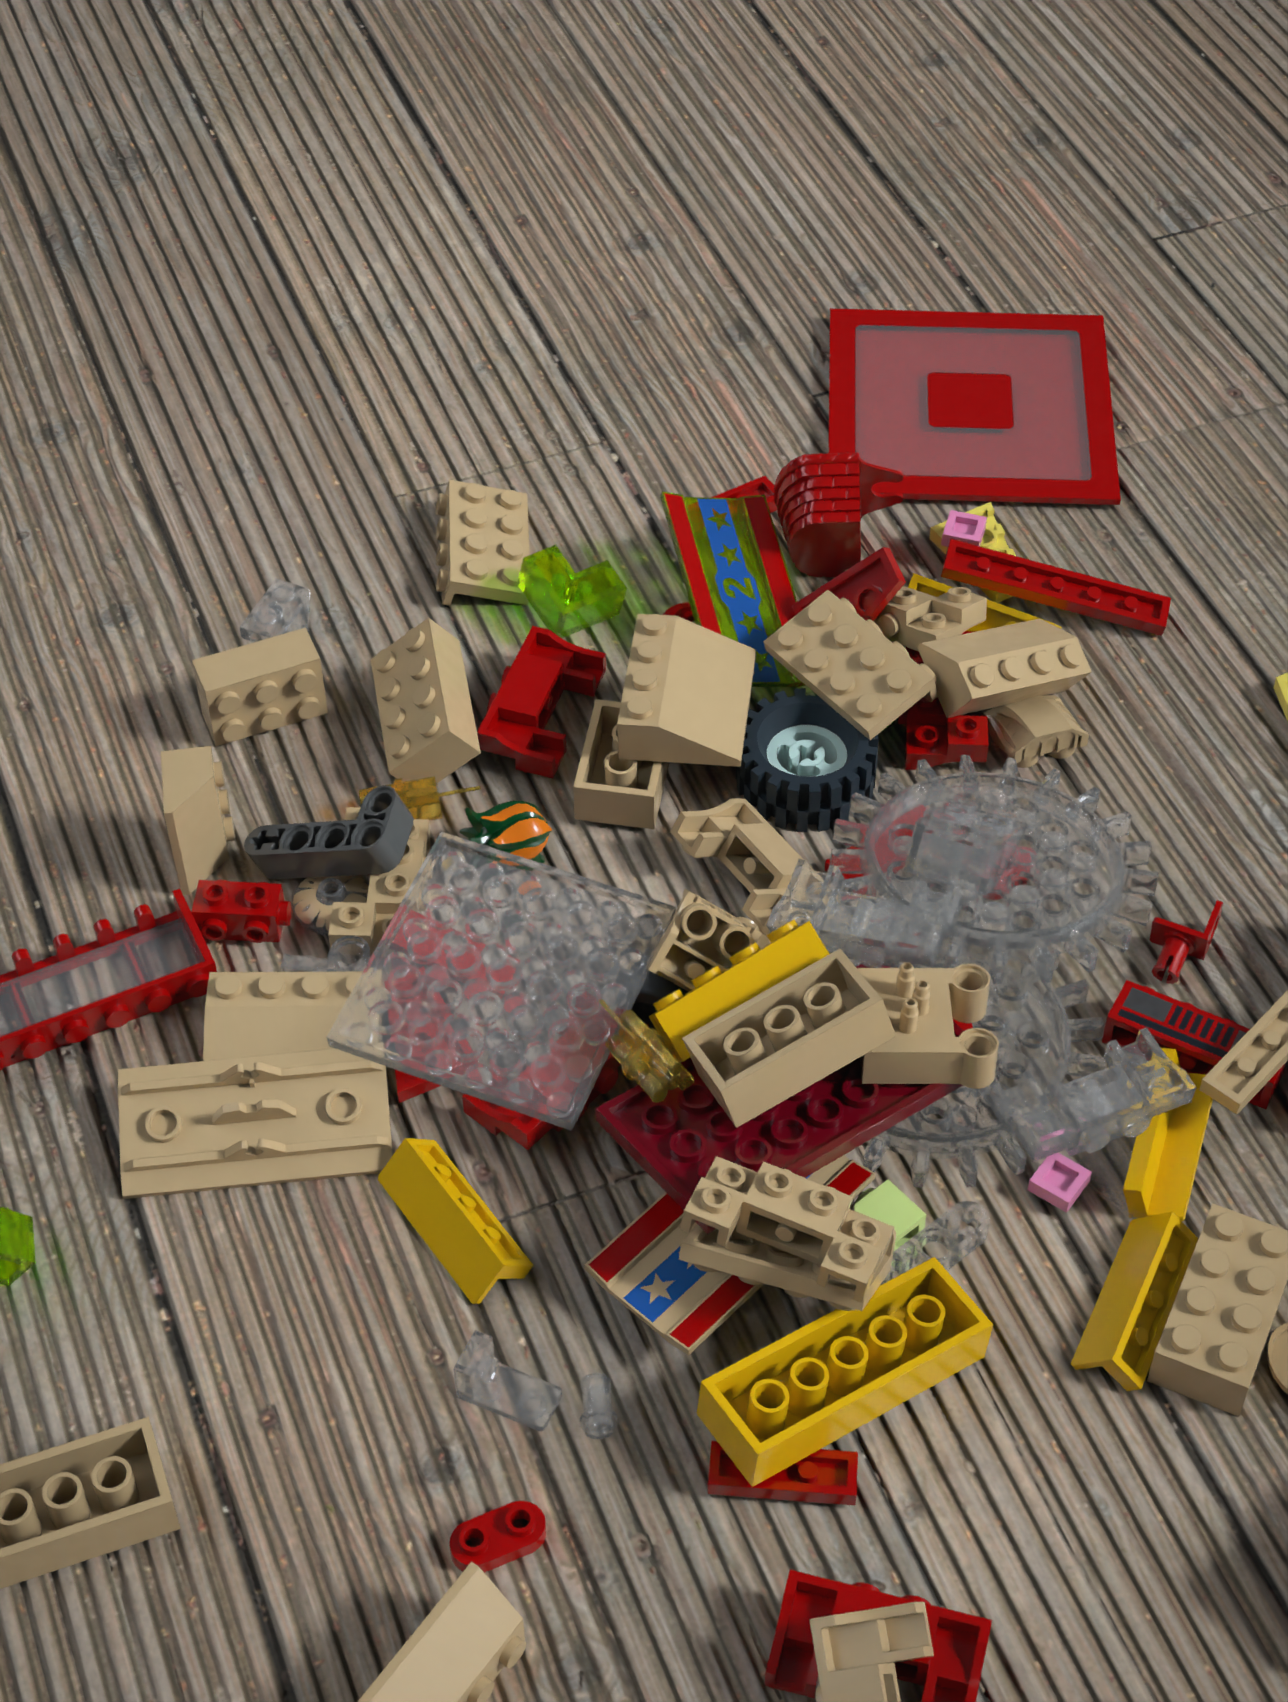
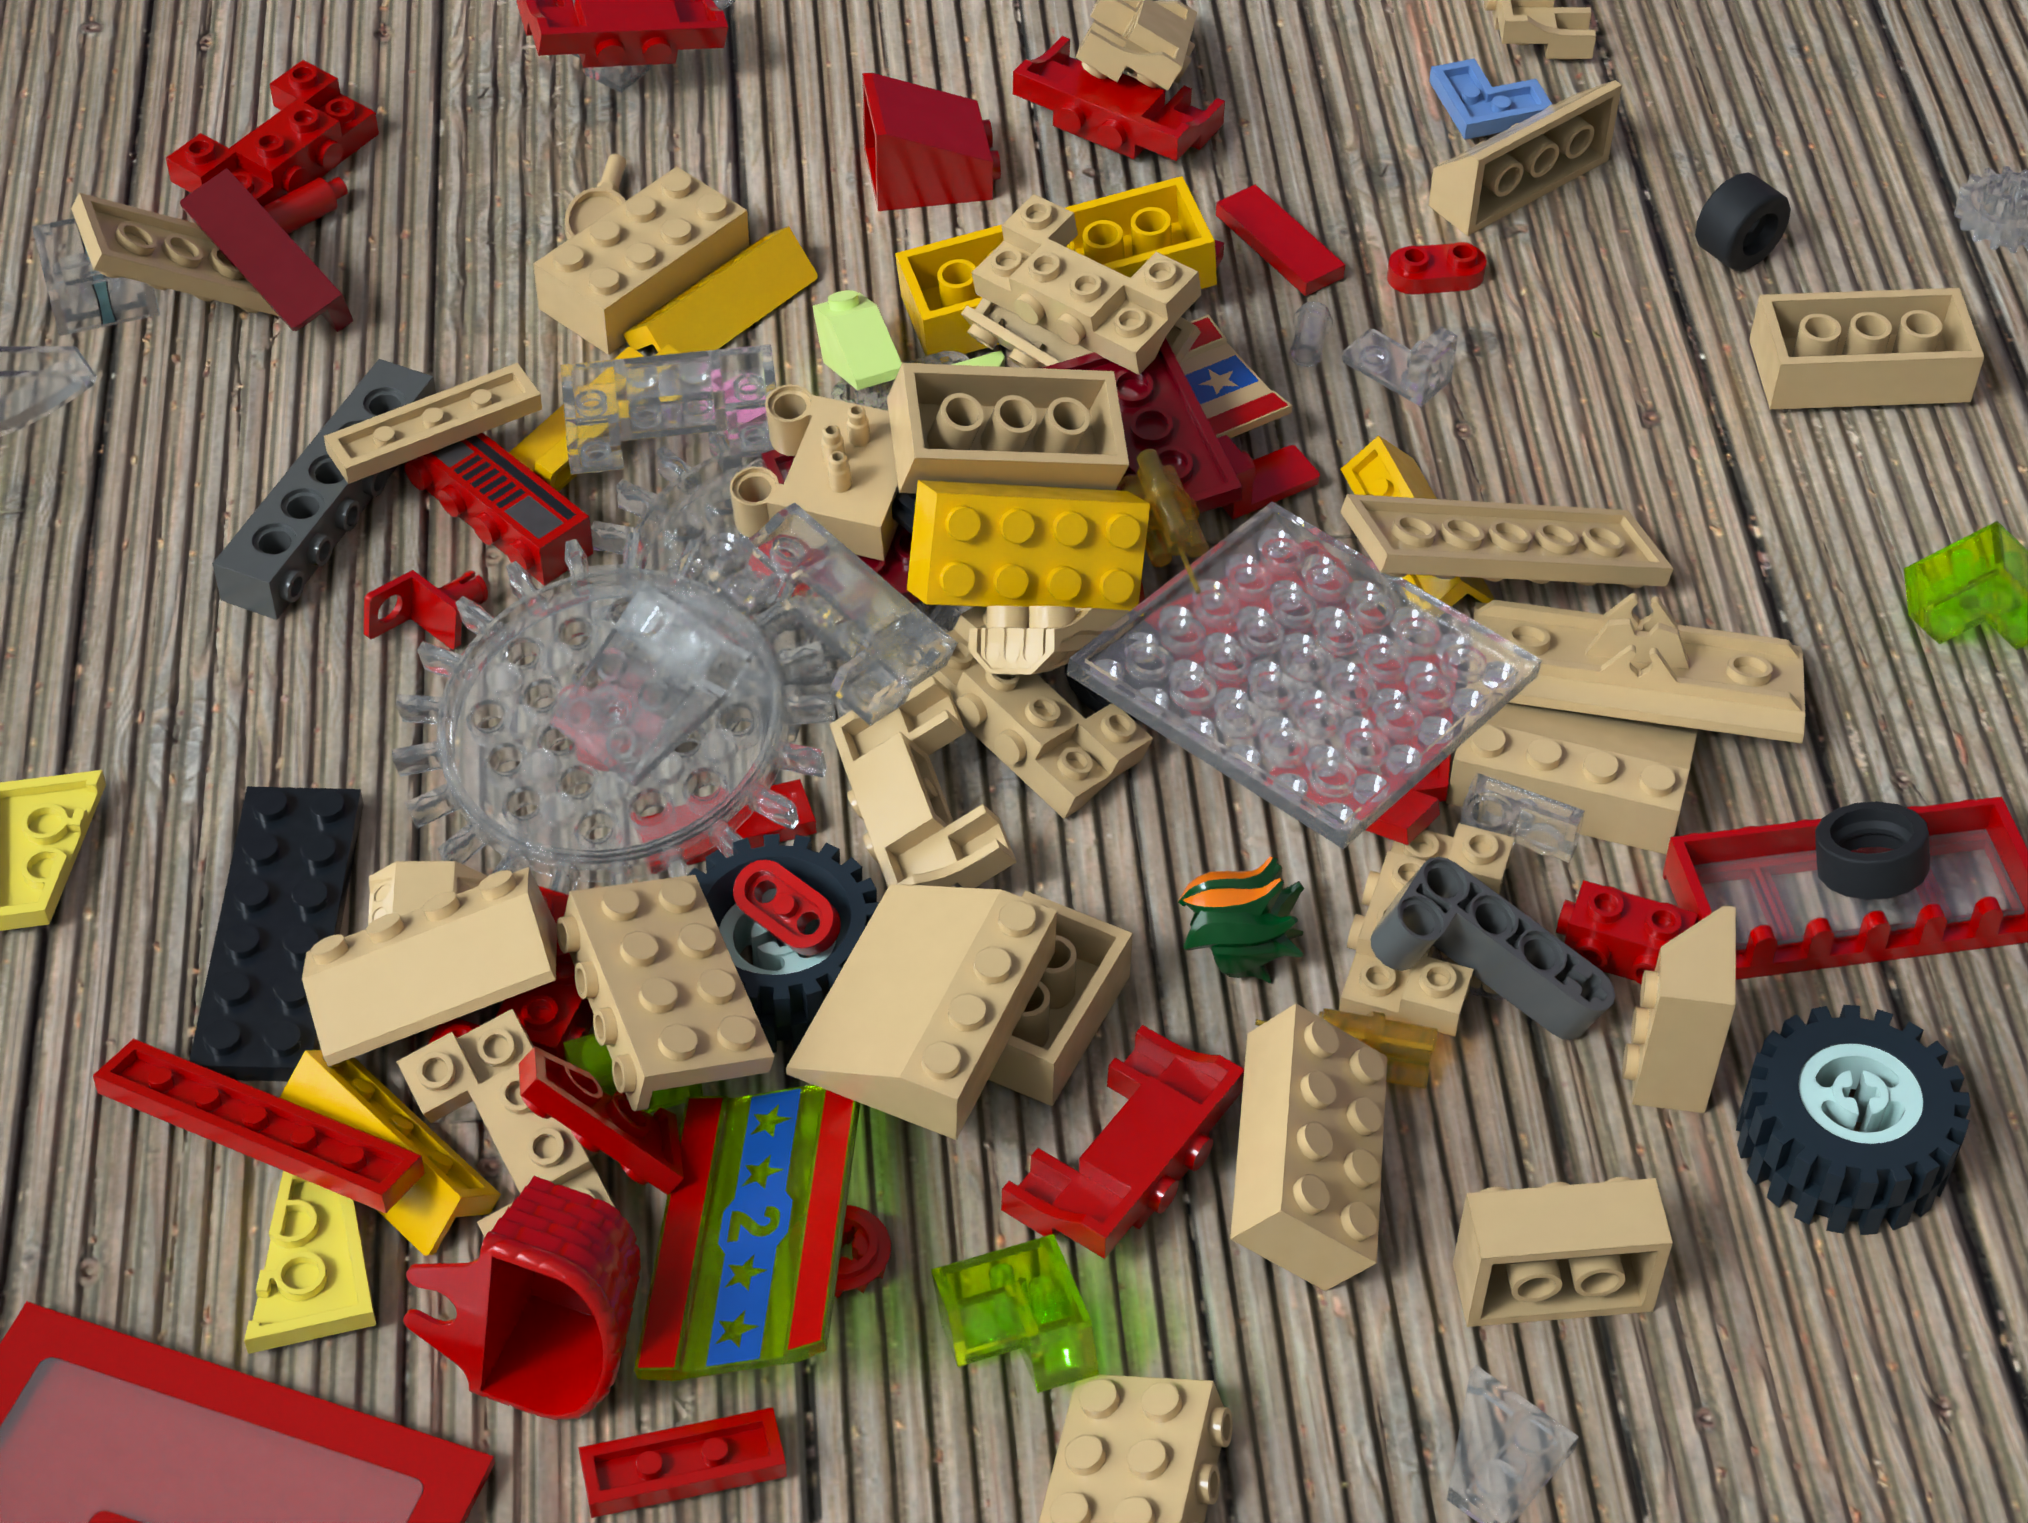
camera: 165 degrees left, 0 degrees up
(66, 934) = (1872, 874): none -> black tyre
(75, 850) = (1803, 1122): none -> black wheel
(194, 1641) = (1742, 221): none -> black tyre
(371, 1167) = (1505, 541): none -> tan plate
(616, 1208) = (1268, 476): none -> red bracket
(660, 1530) = (1280, 240): none -> red tile
(803, 745) = (790, 908): none -> red plate
(964, 528) = (335, 1253): bright pink plate -> none
(985, 1248) = (856, 340): none -> yellowish green slope
(1040, 1516) = (925, 145): none -> red slope
(1138, 726) = (278, 902): none -> black plate

